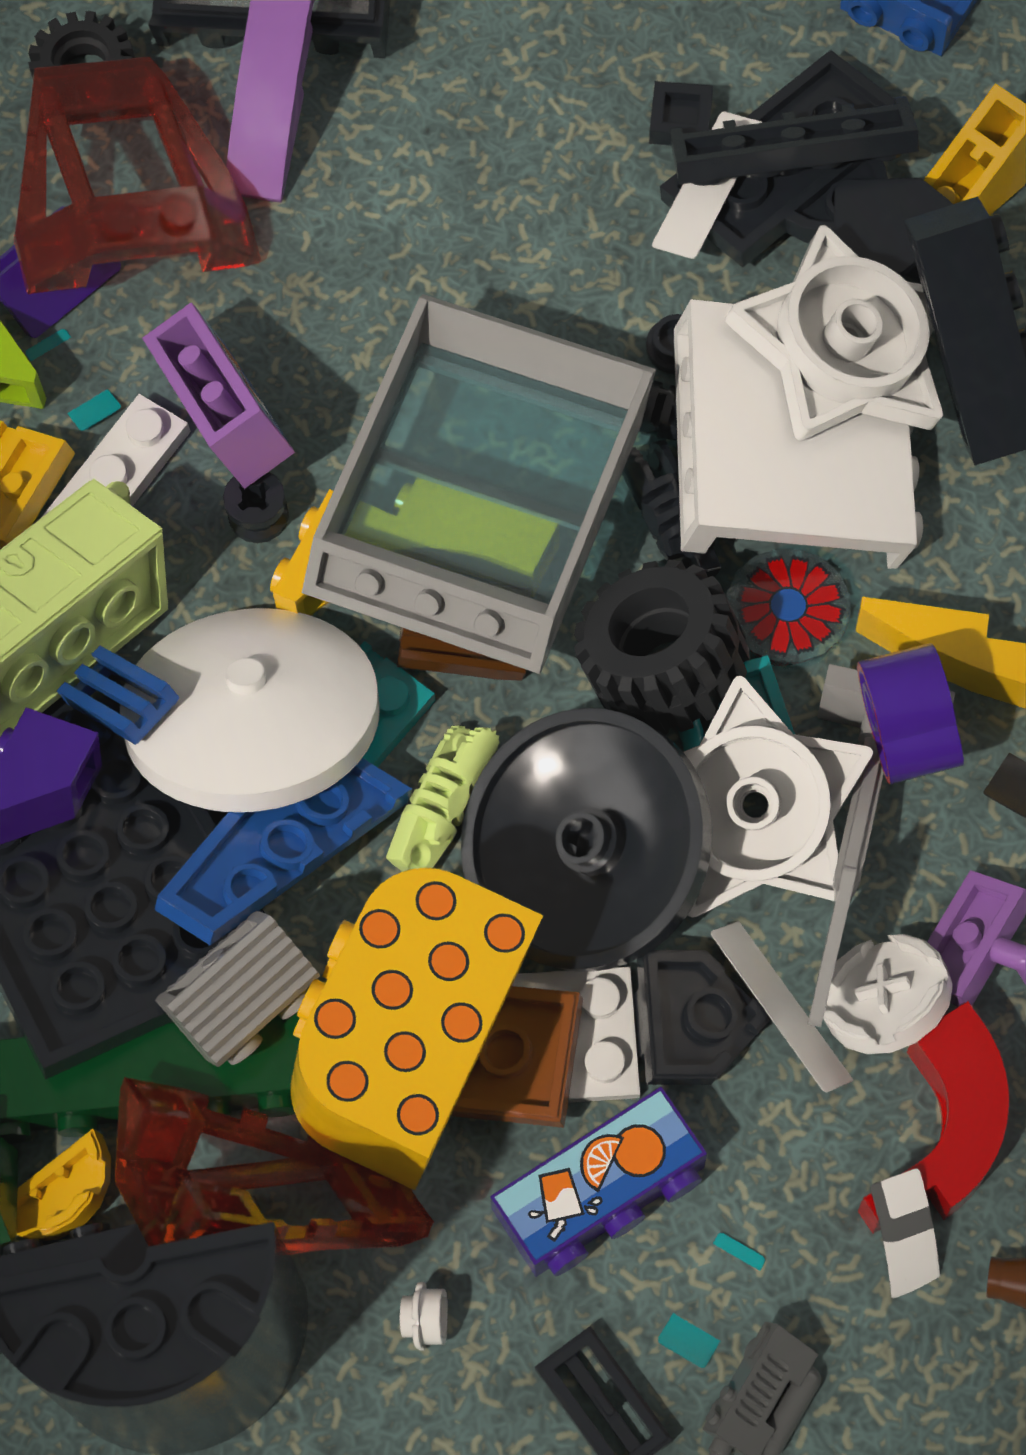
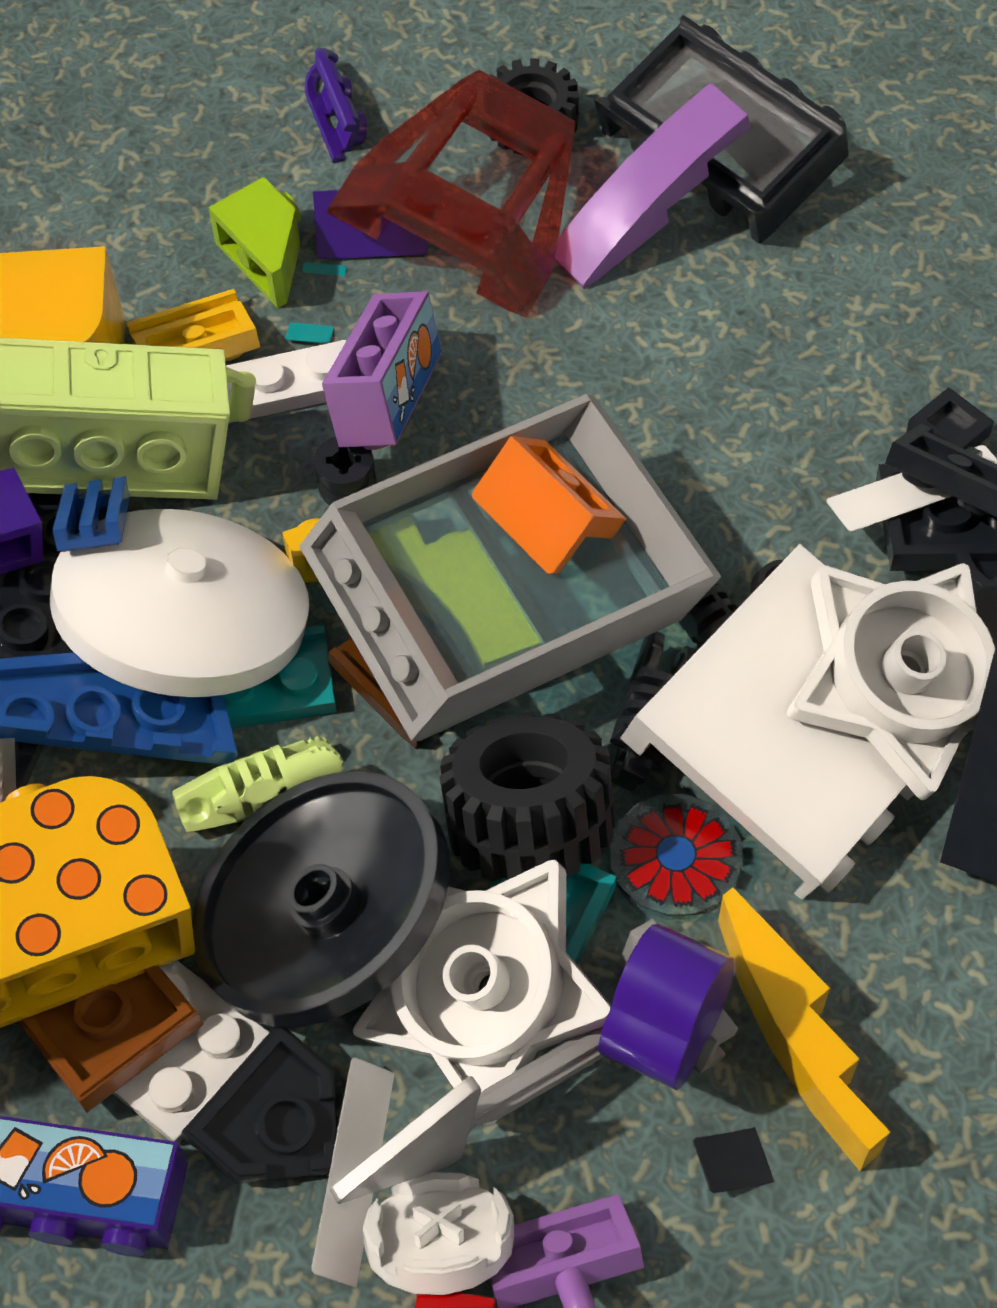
camera: 40 degrees right, 10 degrees down
(469, 412) = (544, 502): none -> orange panel

